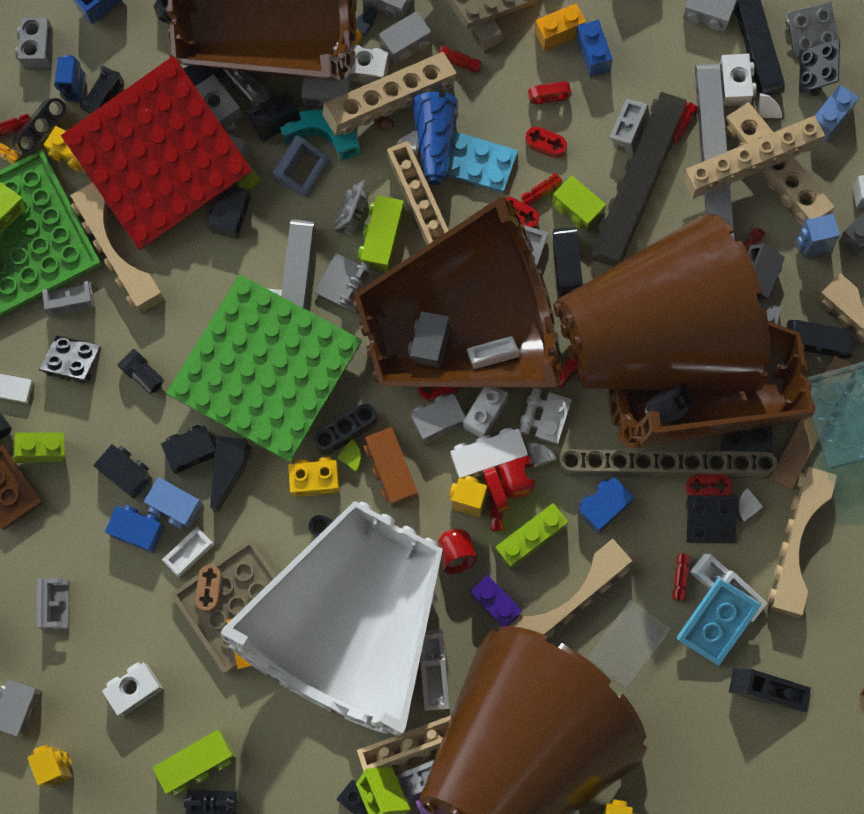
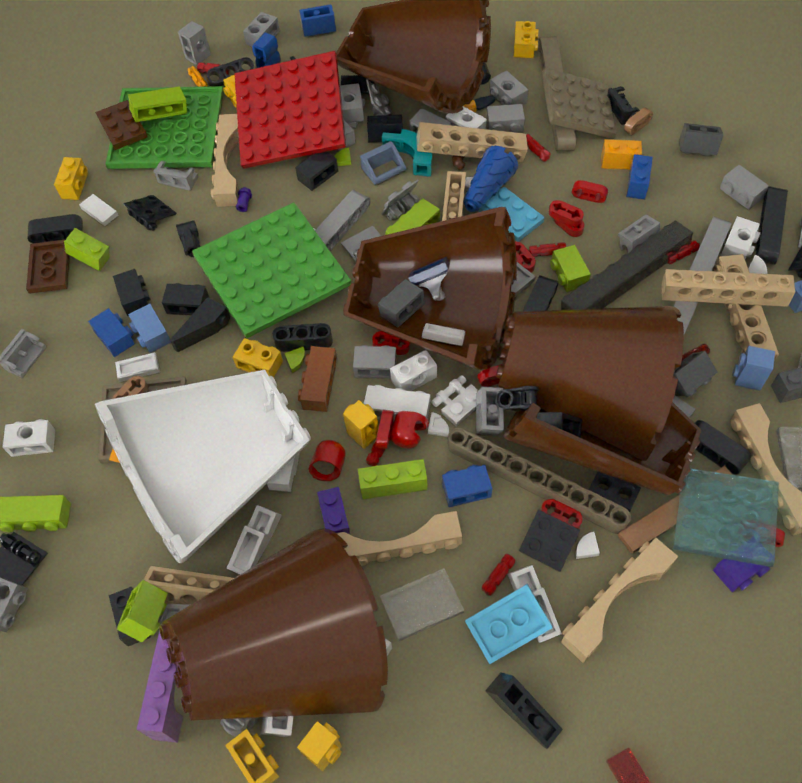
camera: 25 degrees right, 15 degrees down
(169, 291) = (243, 199): none -> dark purple pin
(446, 294) = (431, 277): none -> piece
(540, 137) = (566, 213): none -> red beam
(587, 416) = (488, 414): none -> light grey brick
(620, 394) = (520, 398): none -> black piece

